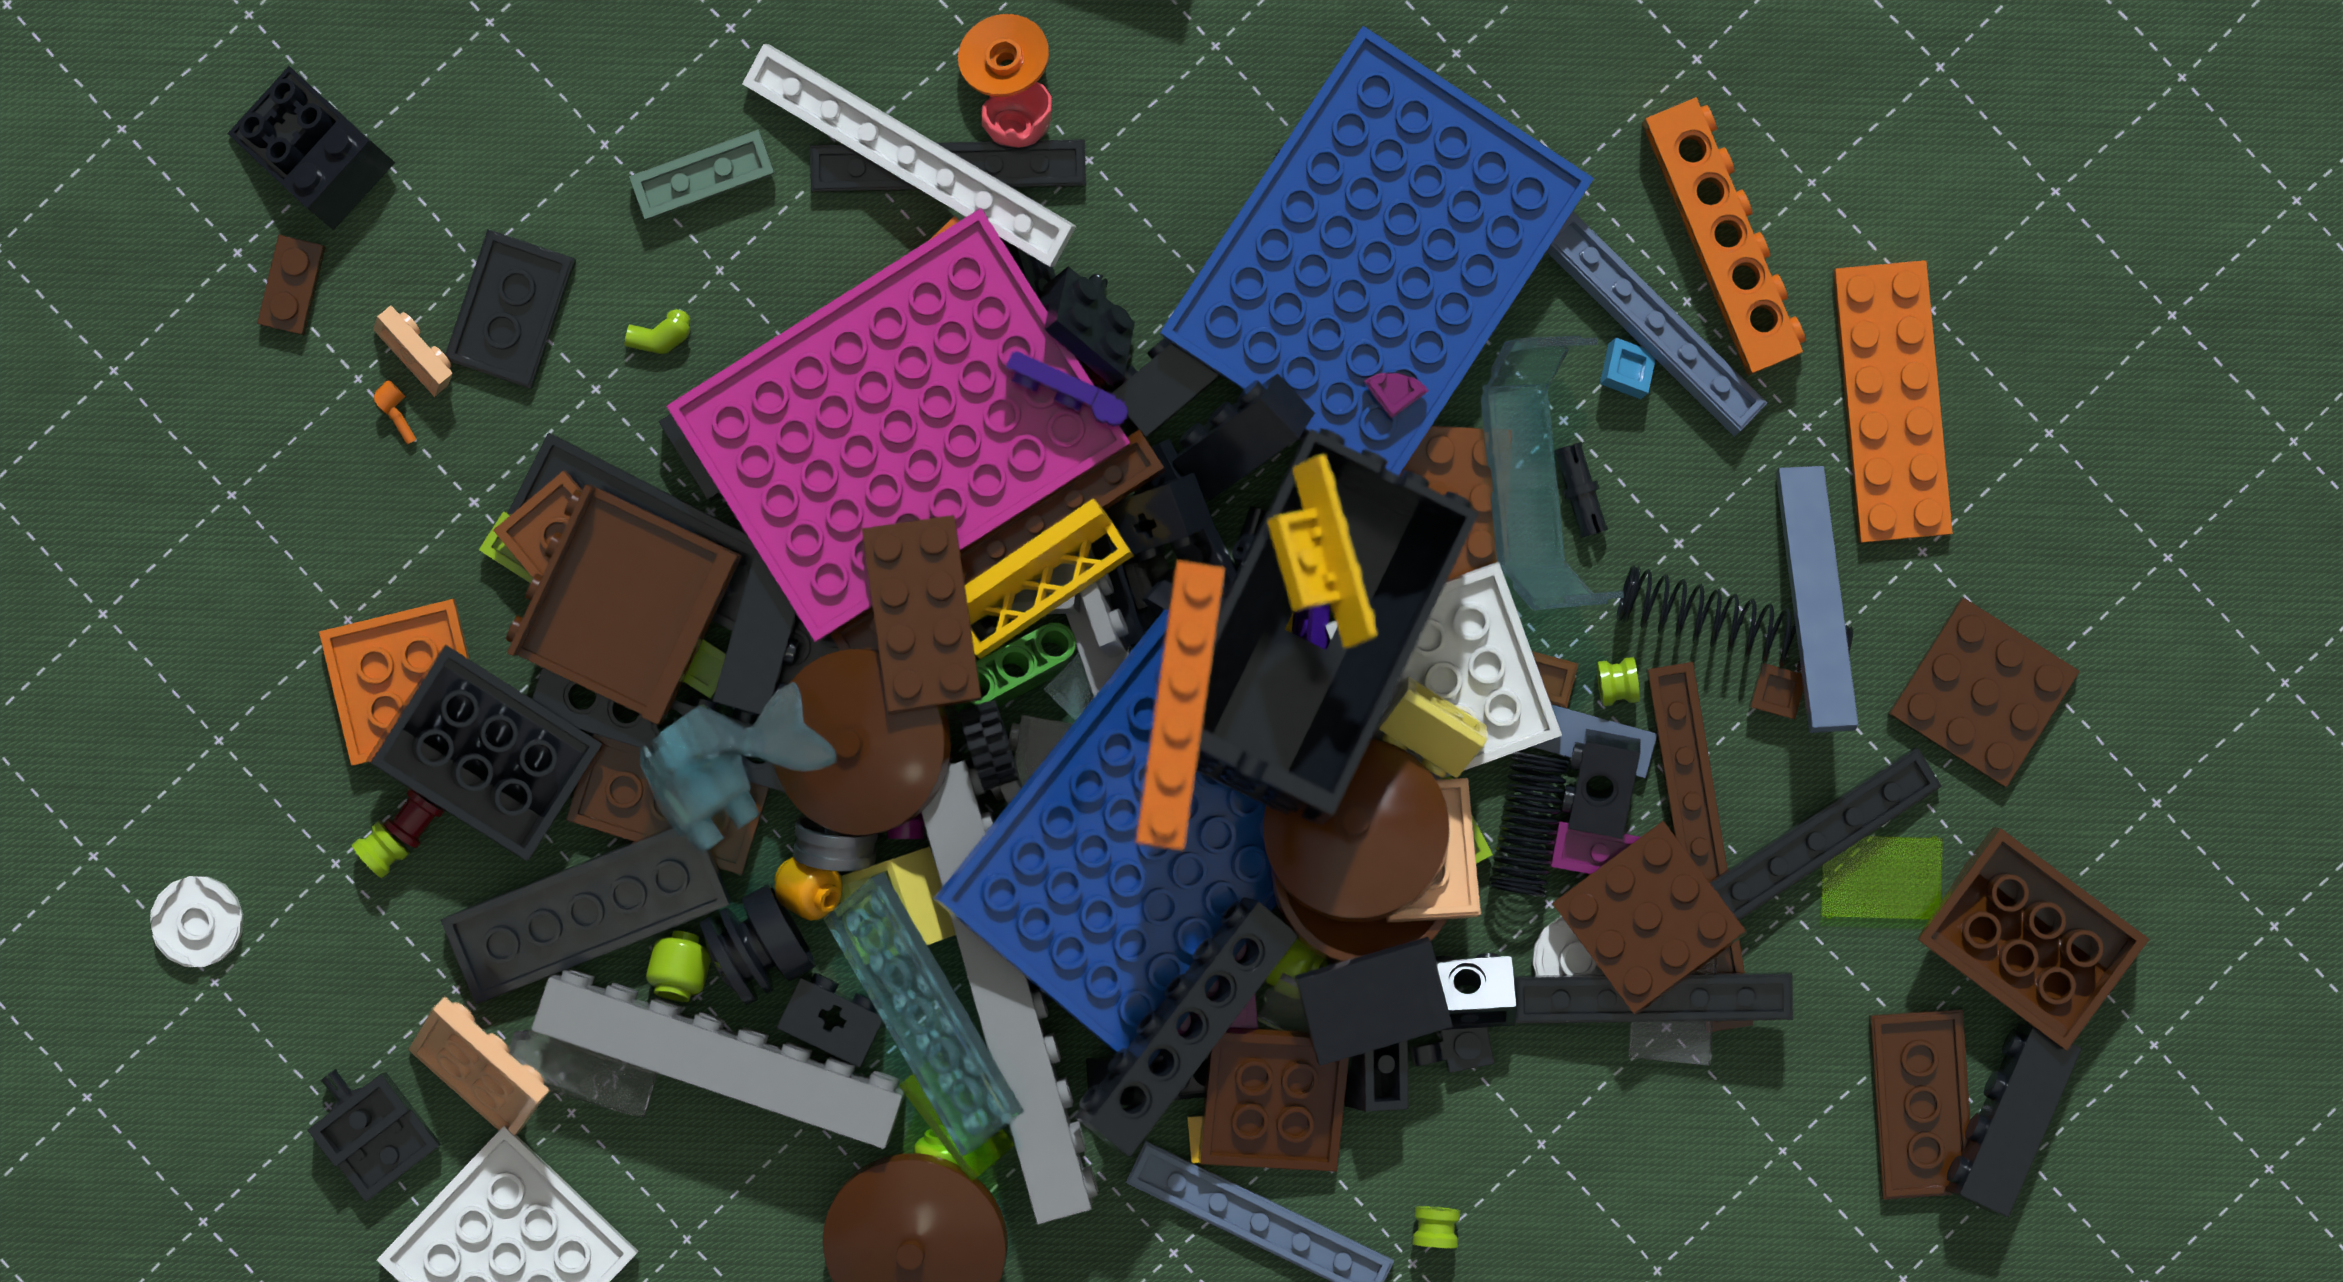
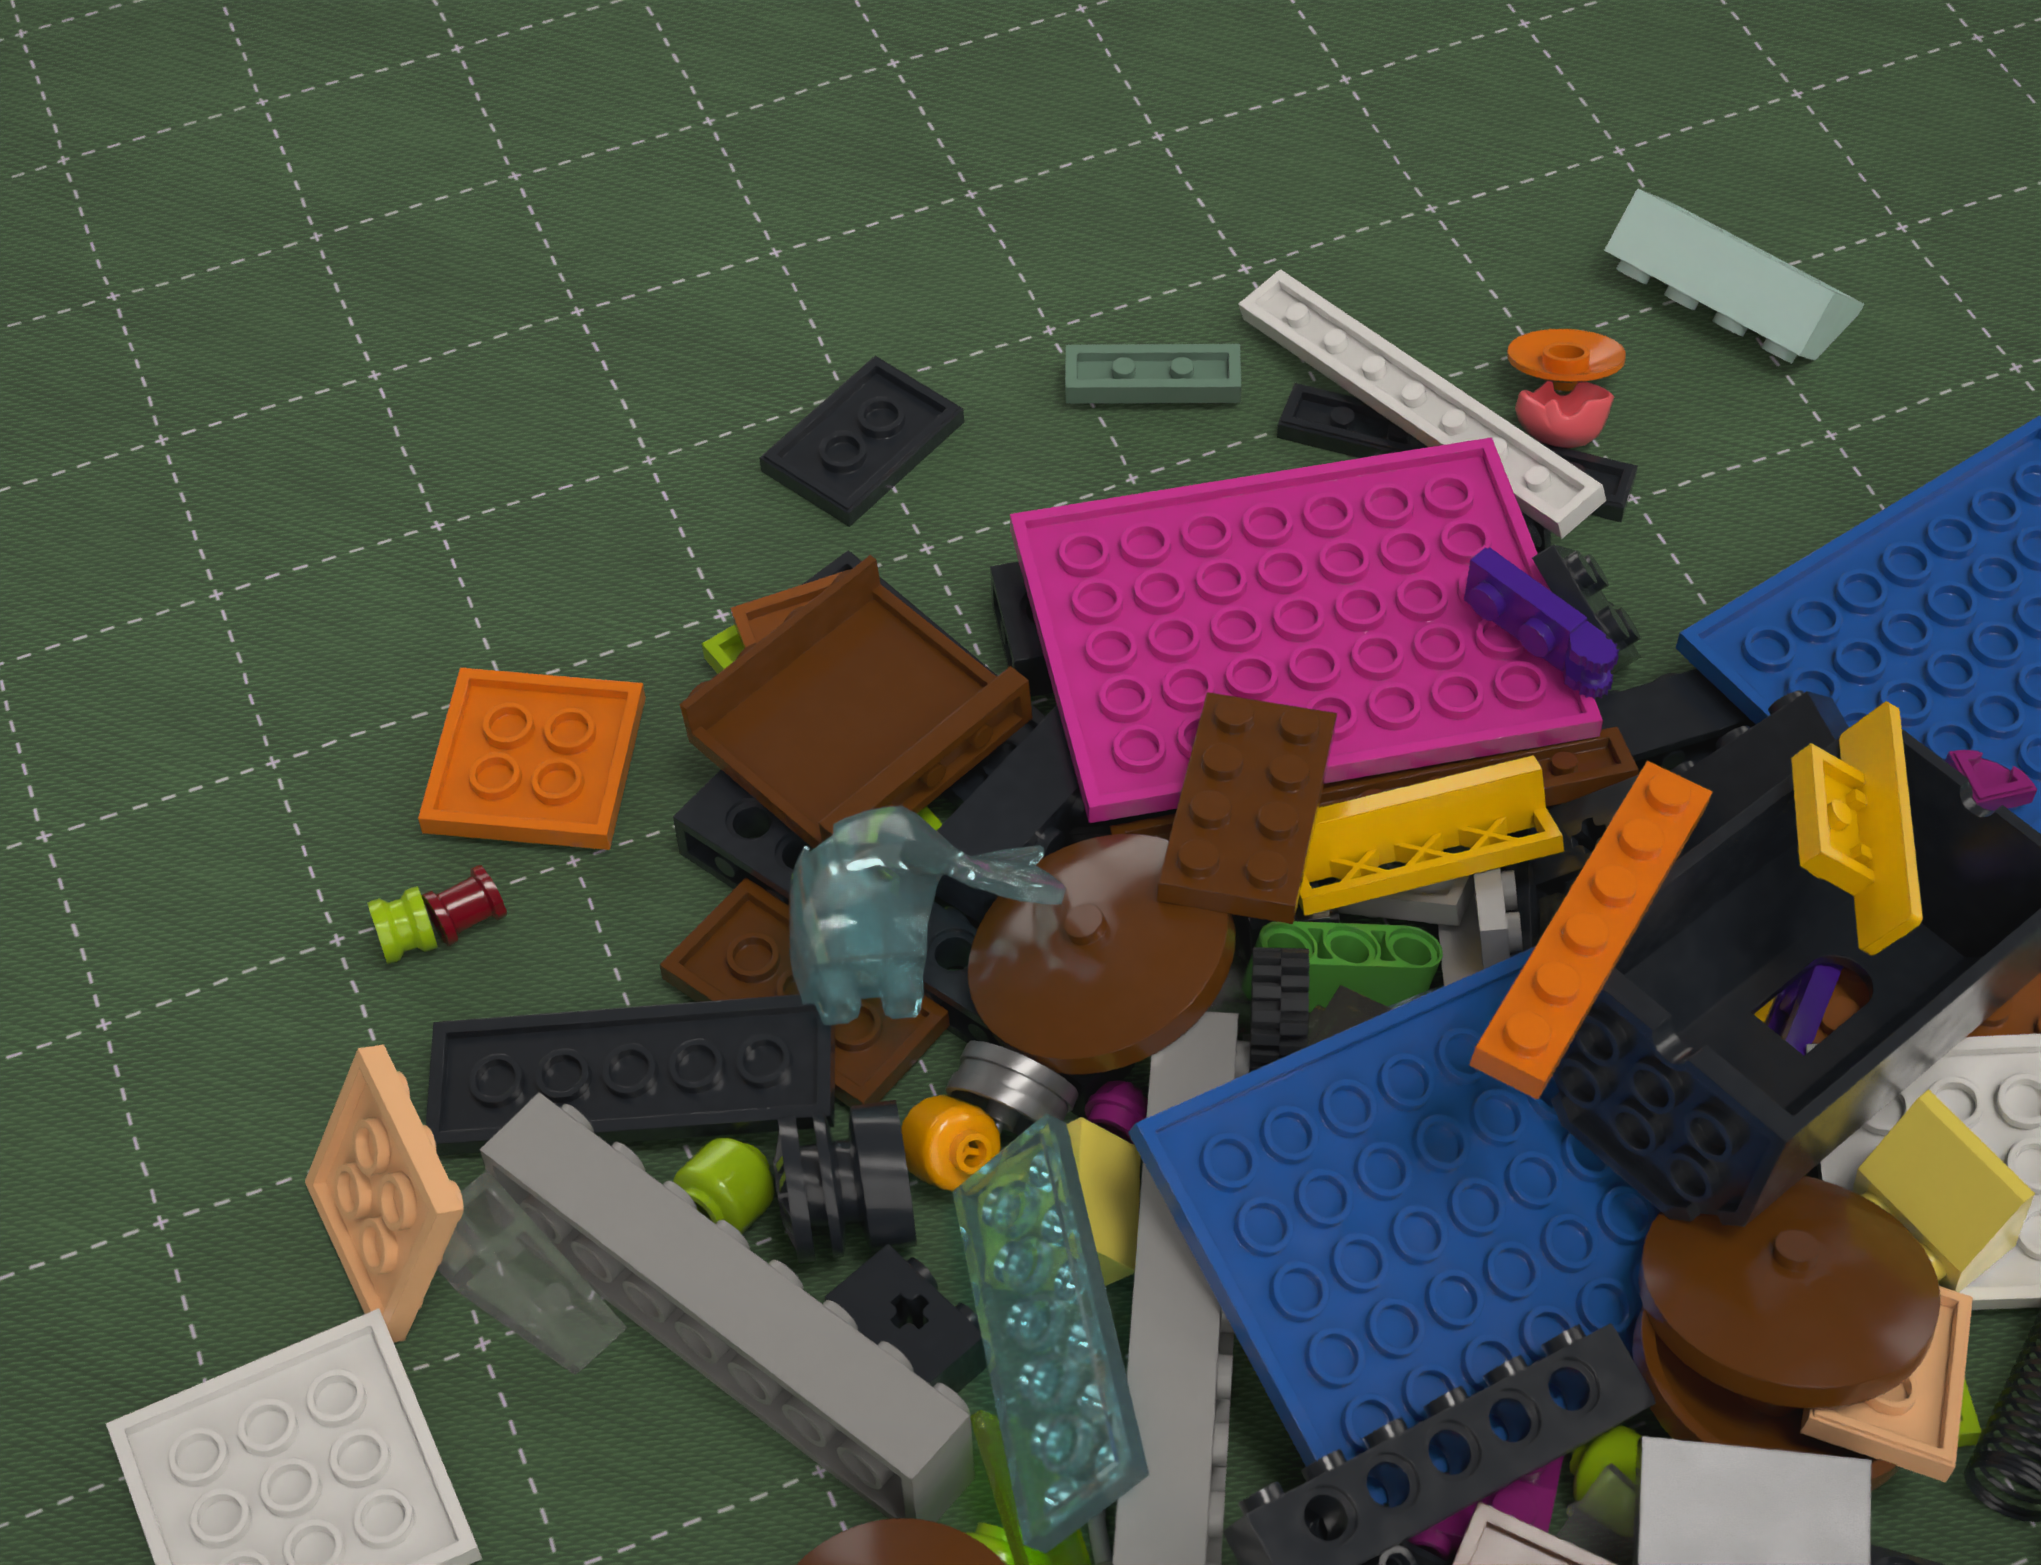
camera: 25 degrees right, 35 degrees down
(196, 921) = (123, 943): white tile -> none
(291, 285) = (621, 349): reddish brown plate -> none
(311, 148) = (716, 233): black slope -> none
(372, 1133) = (195, 1259): black plate -> none
(387, 399) = (674, 476): orange hand -> none
(403, 338) = (728, 434): light nougat plate -> none
(484, 752) = (590, 838): black slope -> none
(661, 338) = (1002, 503): lime arm -> none

